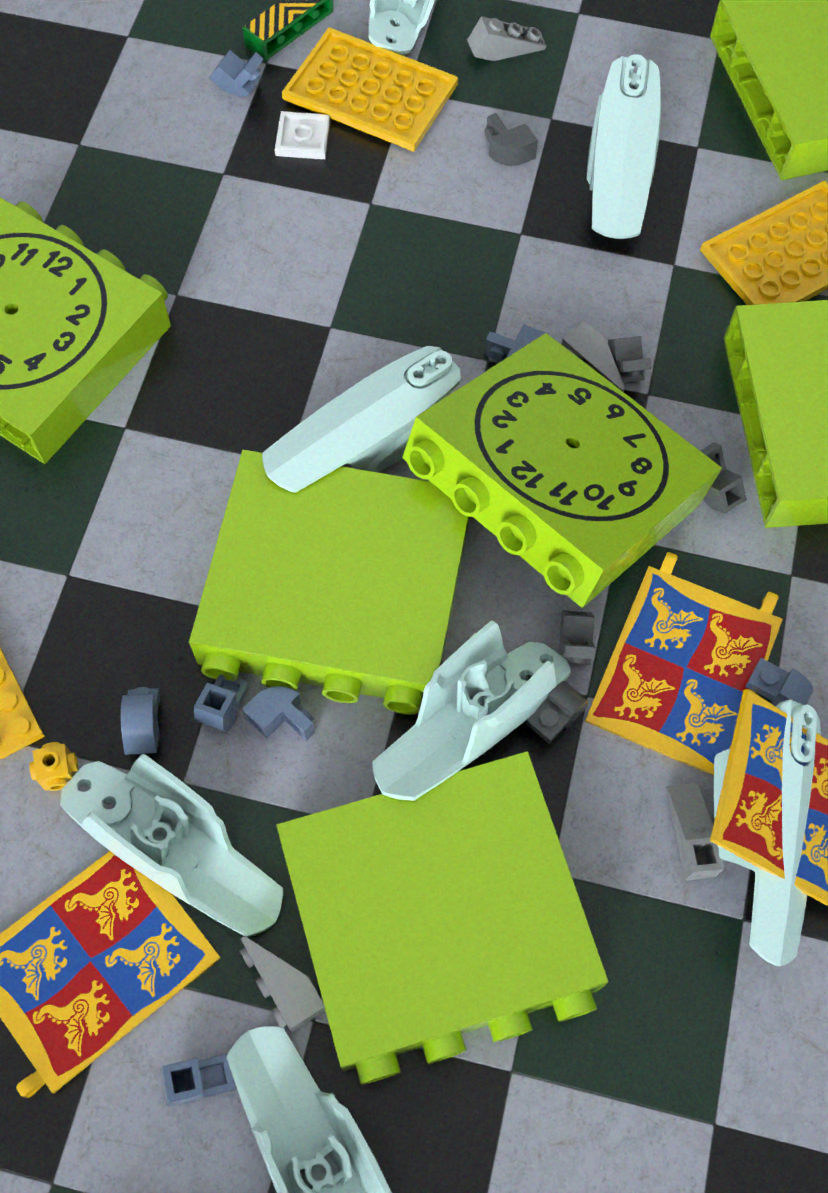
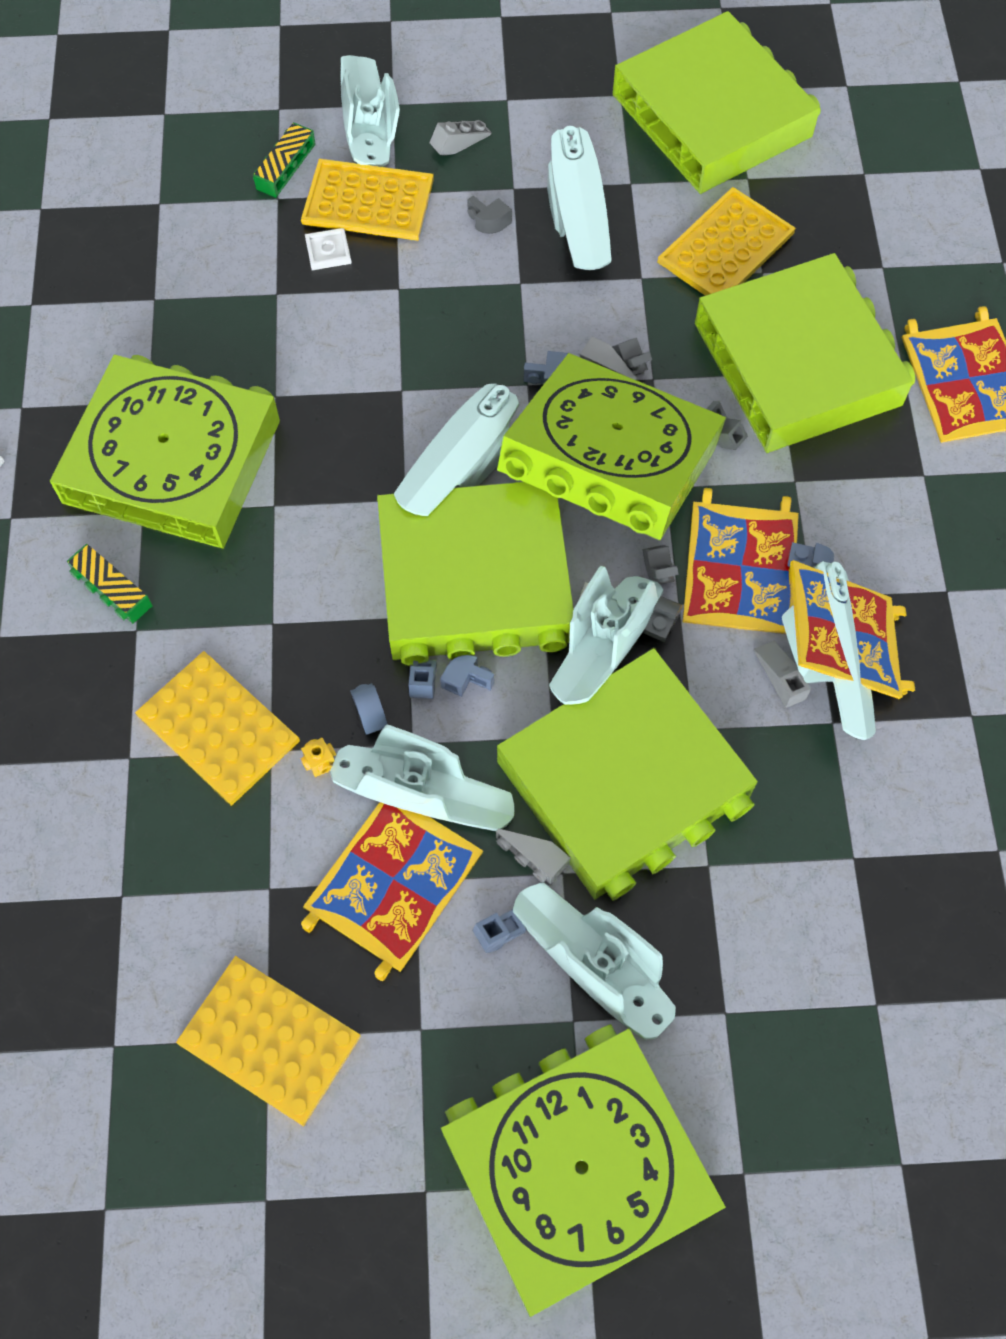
camera: 15 degrees left, 0 degrees up
(237, 76) = (259, 214): sand blue brick -> none

